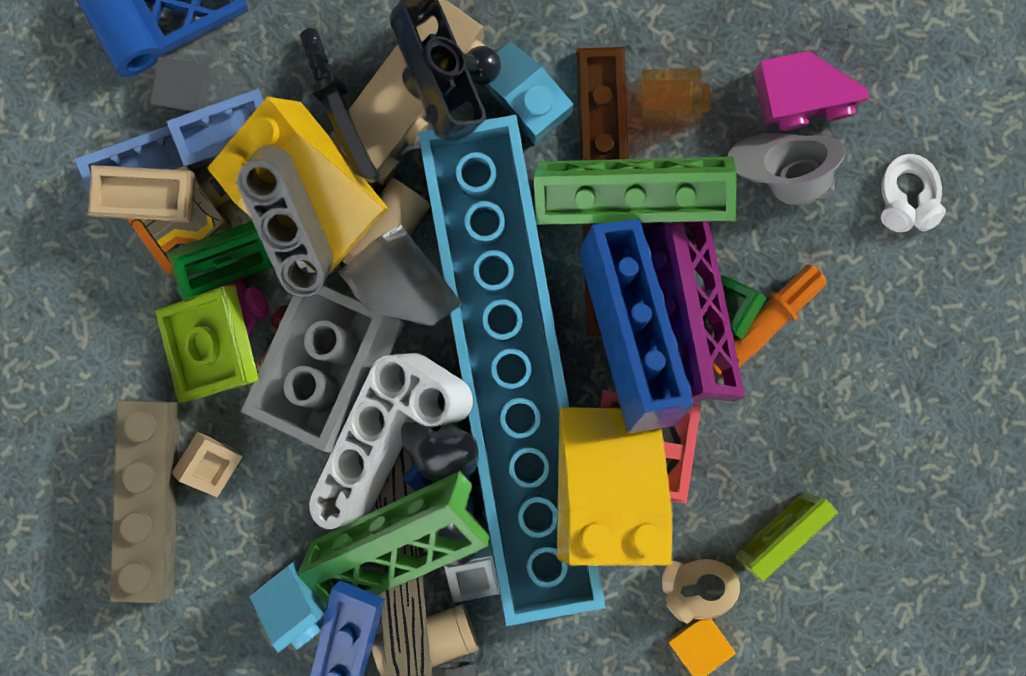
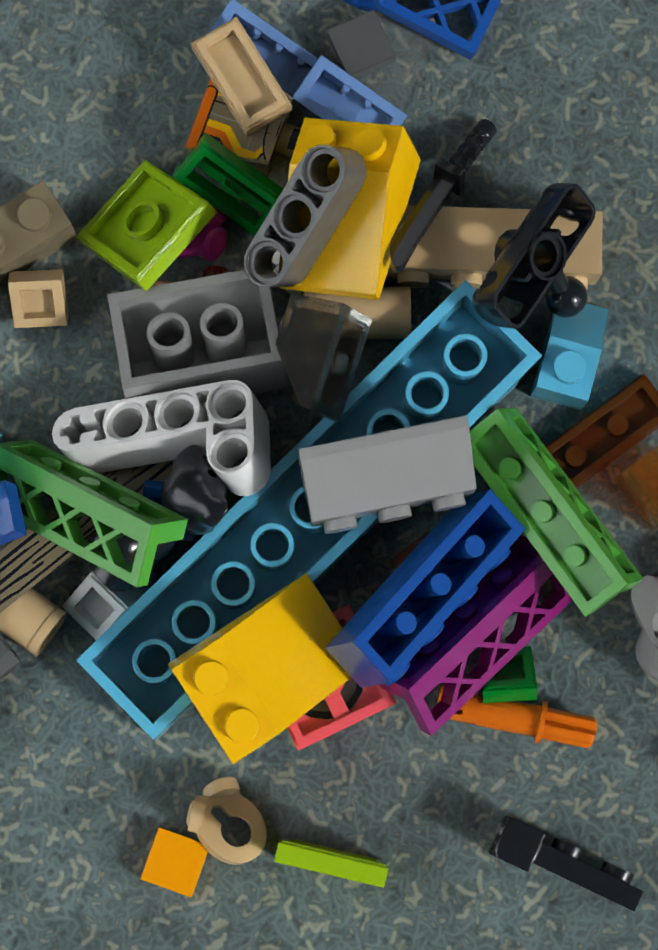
camera: 50 degrees right, 5 degrees down
(532, 294) = (388, 474): none -> light grey slope
(867, 382) = (523, 845): none -> black plate

